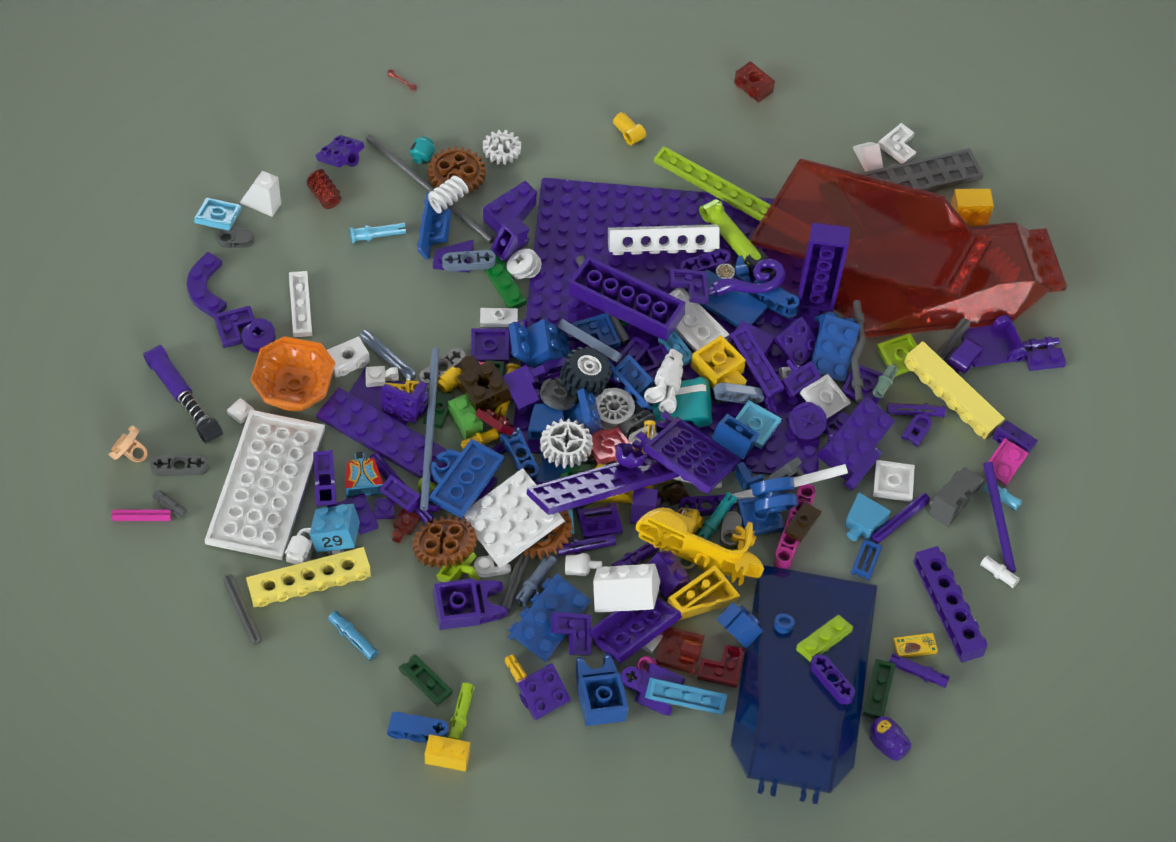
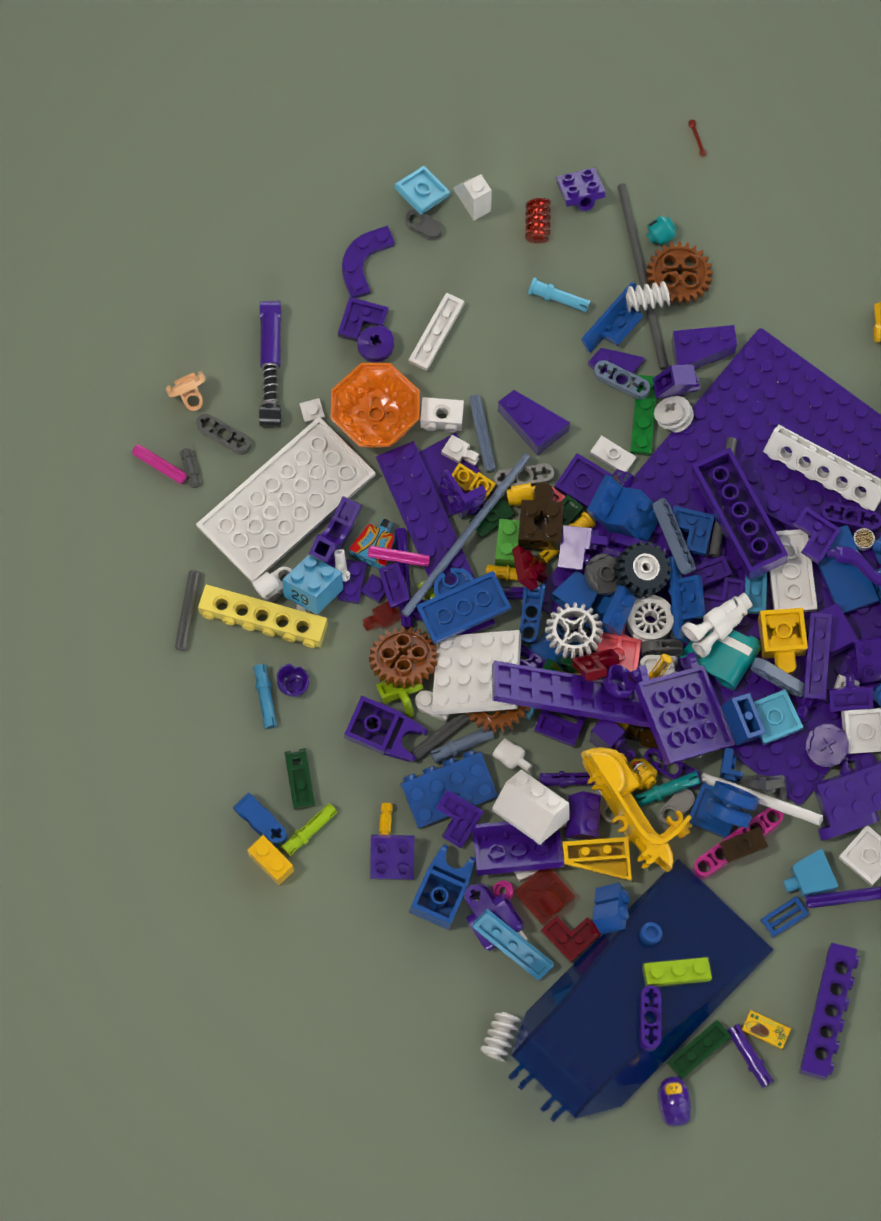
camera: 40 degrees right, 15 degrees up
(344, 499) = (340, 564): none -> white arm
(367, 610) = (292, 680): none -> dark purple hair
(387, 470) = (398, 556): none -> dark pink axle
(420, 324) = (532, 421): none -> dark purple wedge
(495, 150) = (733, 263): white gear -> none
(601, 455) = (594, 665): none -> dark red plate
(608, 540) = (533, 739): dark purple pin -> none
(723, 772) = (500, 1035): none -> white piece

